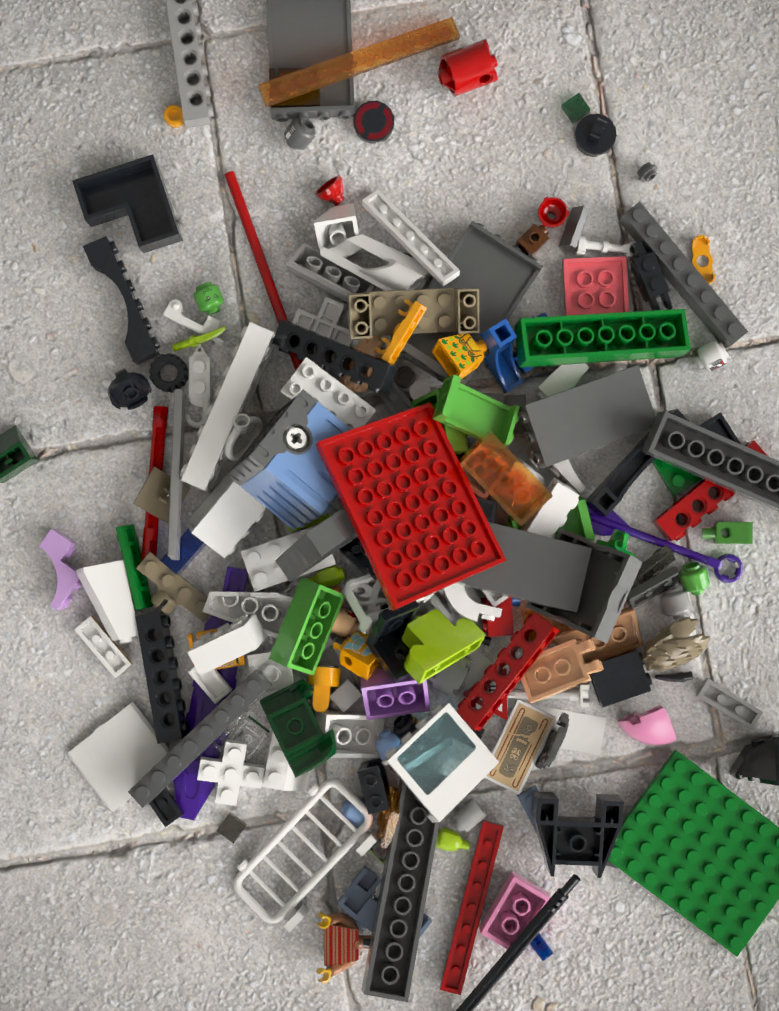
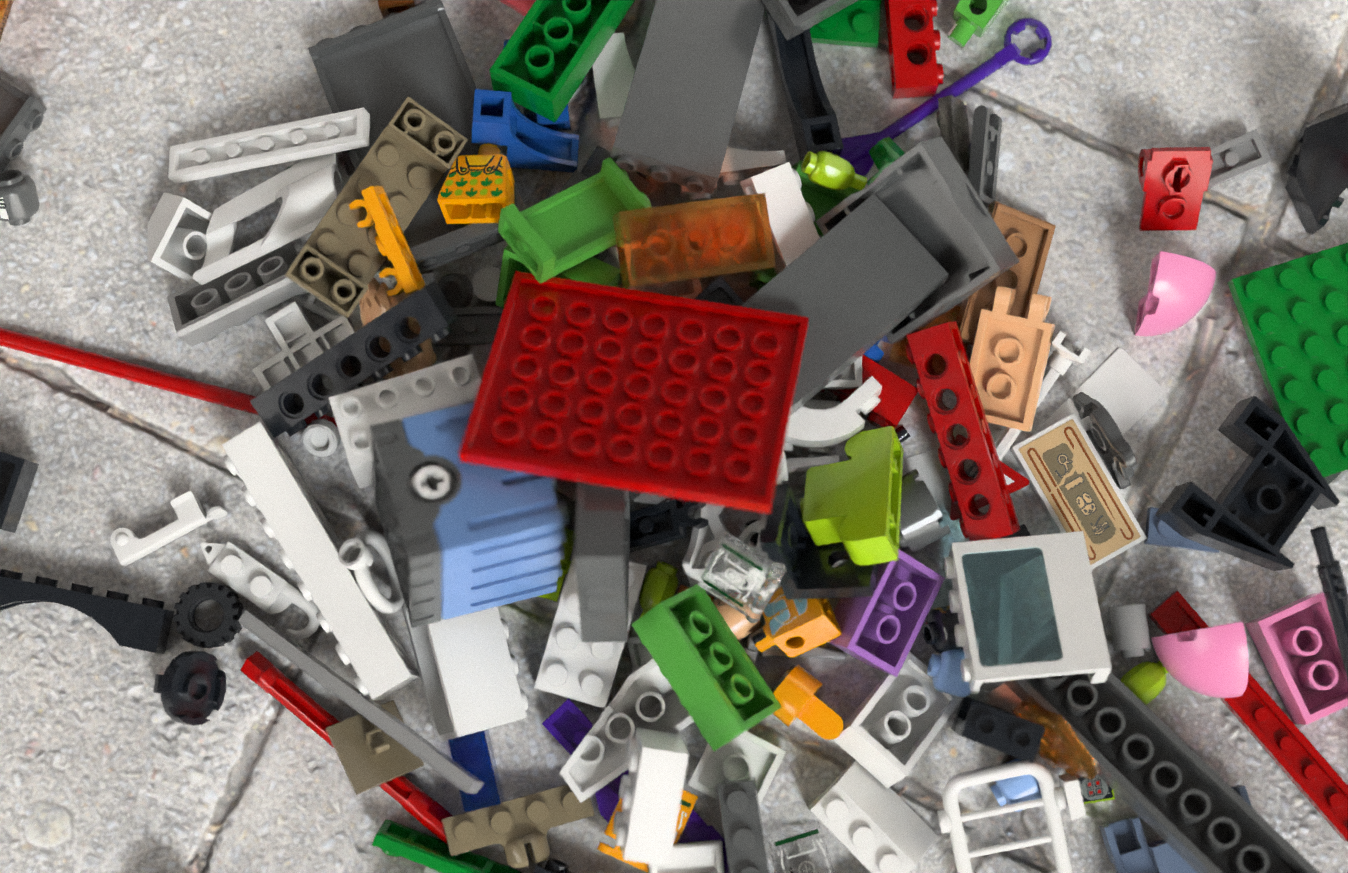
camera: 55 degrees left, 5 degrees down
(196, 340) = (191, 546): lime piece -> none
(208, 298) = (145, 484): bright green head -> none
(288, 364) = (321, 438): none -> white tile
(297, 728) = (841, 780): dark green piece -> none
(332, 191) = (125, 210): red piece -> none
(345, 695) = (841, 684): light grey brick -> none
(359, 614) = (742, 577): none -> clear piece
(373, 122) = (73, 88): black tile -> none
(479, 864) = (1207, 659): none -> bright pink brick
(590, 519) = (831, 171): none -> lime plant
(621, 678) = (1081, 286): black brick -> none
(673, 647) = (1085, 185): dark tan head -> none
(676, 603) = (1027, 142): light grey head -> none
(677, 677) = (1130, 212): black helmet -> none
(694, 578) = (1010, 94): bright green head -> none
(703, 690) = (1173, 186): none -> red piece

